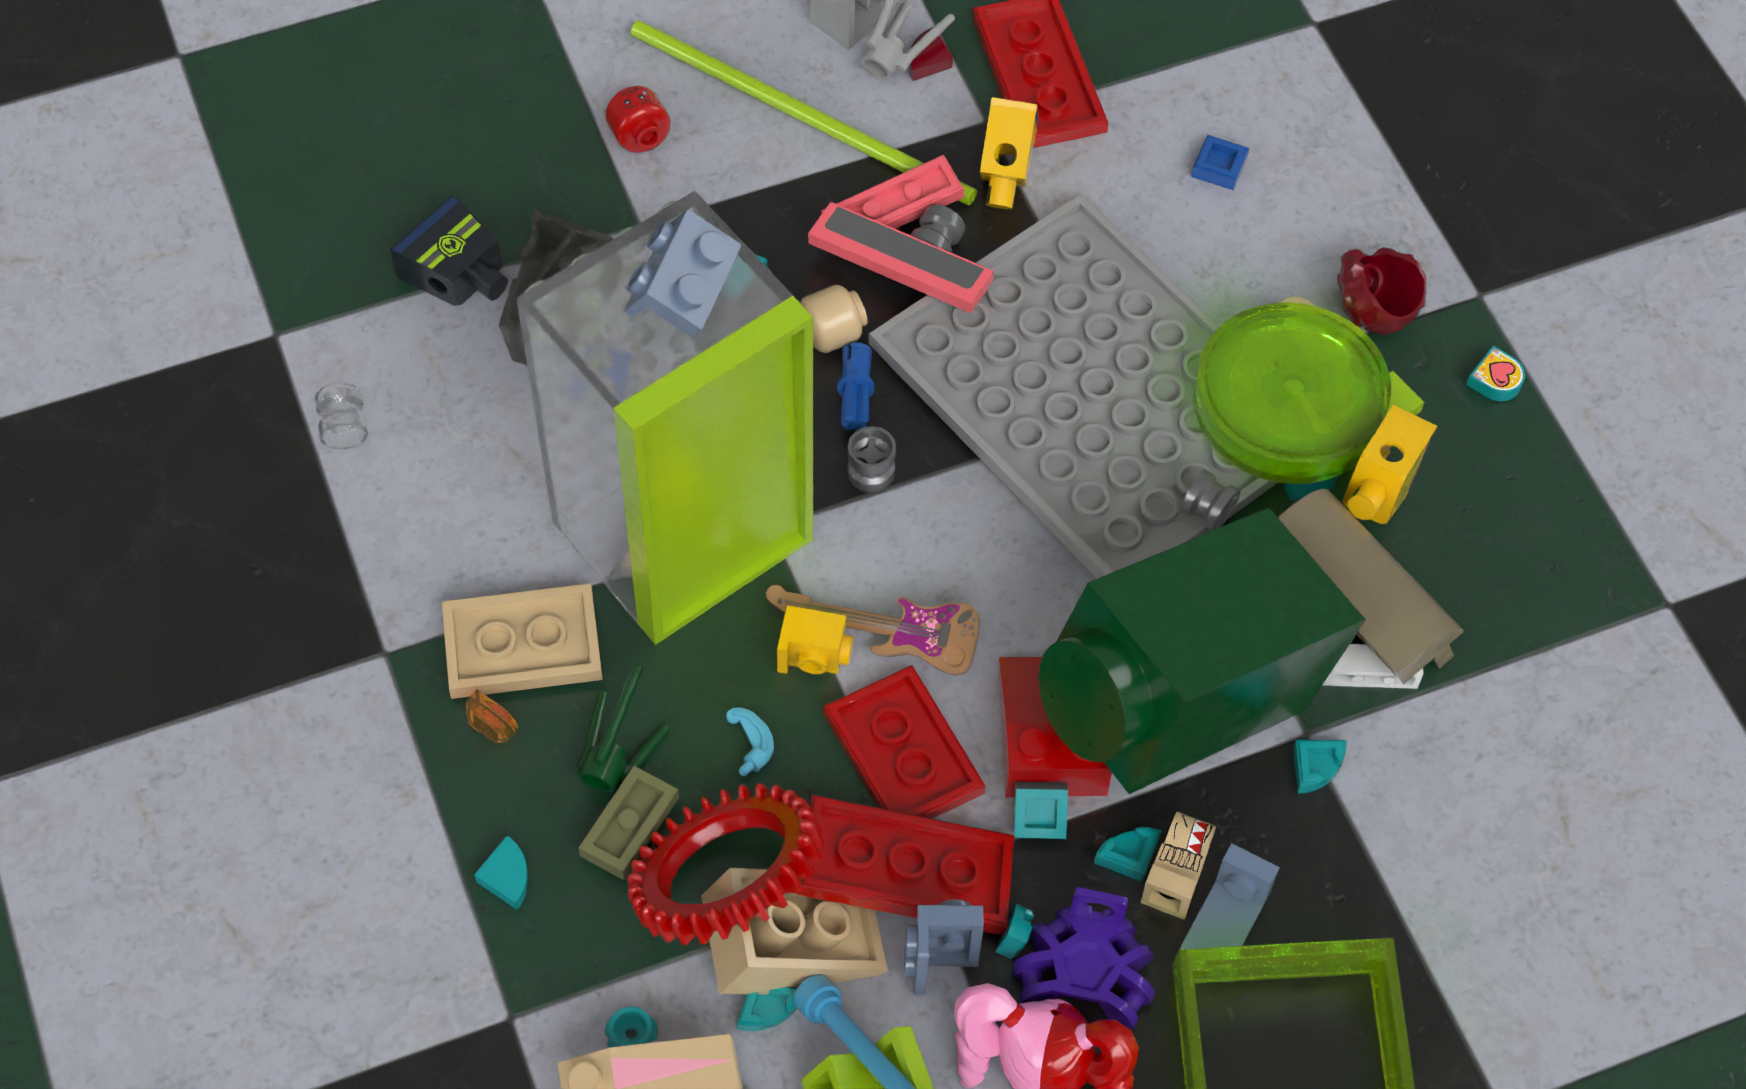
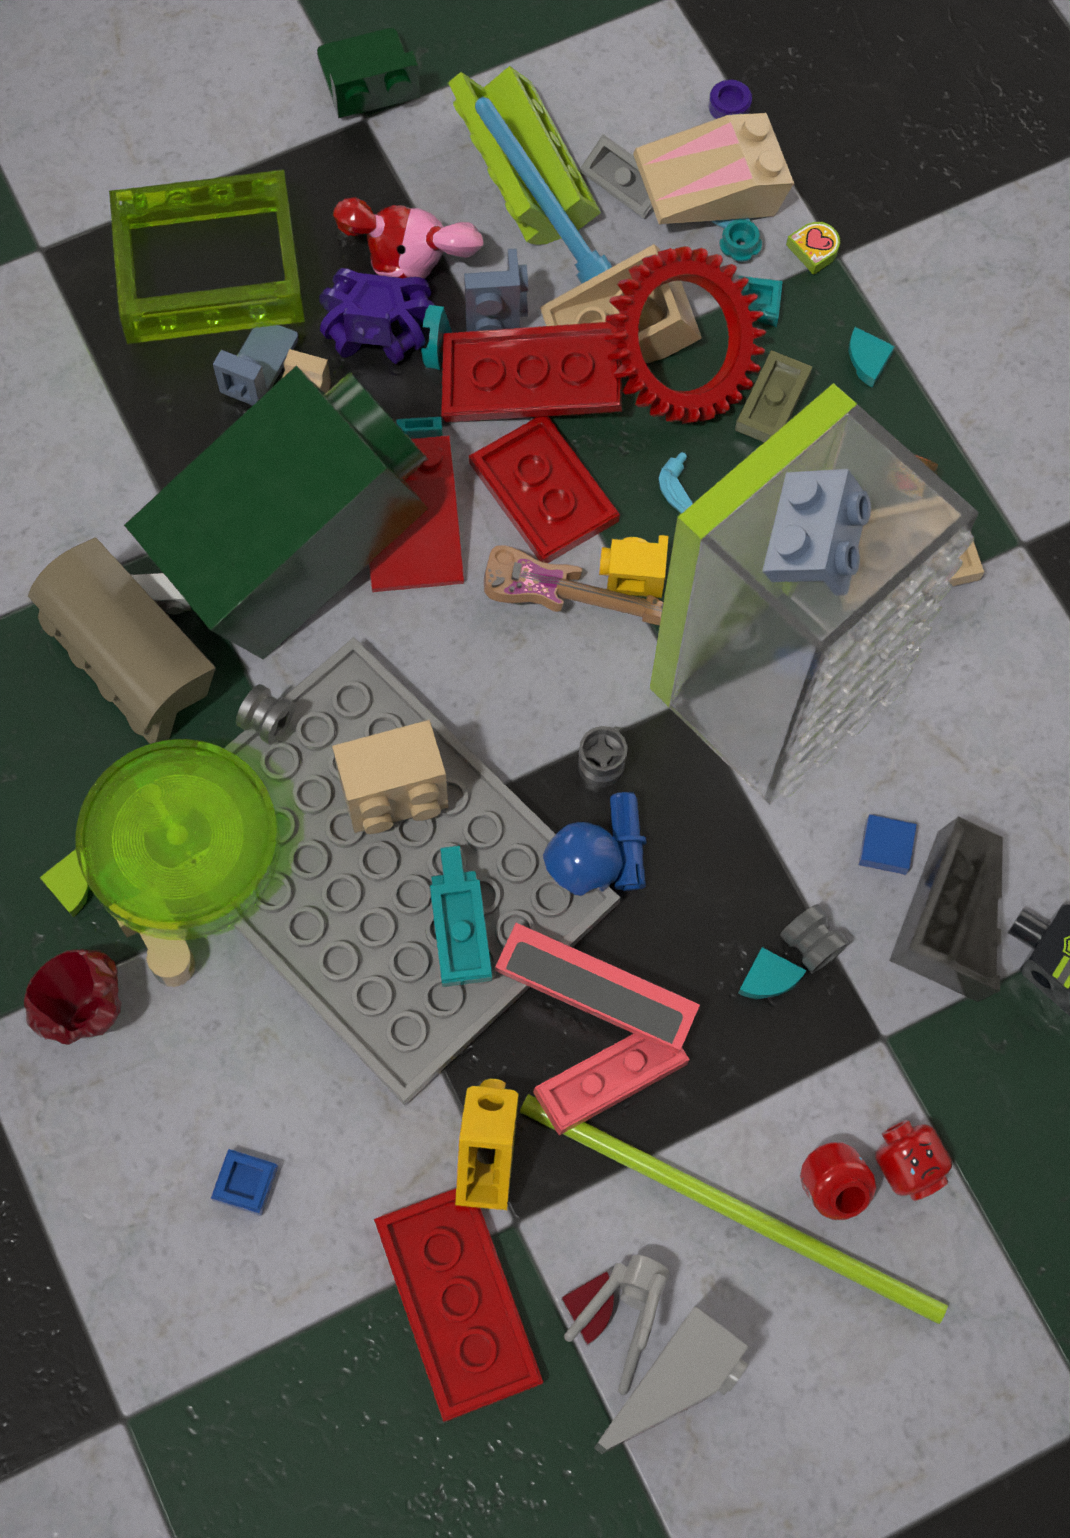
camera: 175 degrees right, 10 degrees up
(538, 1023) = (814, 245): none -> tile
(617, 960) = (768, 298): none -> teal tile
(708, 103) = (837, 1181): none -> red head
(836, 317) = (662, 910): tan head -> none
(902, 359) = (583, 858): none -> blue hair
(940, 227) = (561, 1031): dark grey wheel -> none
(1024, 311) = (459, 923): none -> teal hinge
(1086, 411) = (392, 777): none -> tan brick
(1382, 485) = (84, 752): yellow torso -> none

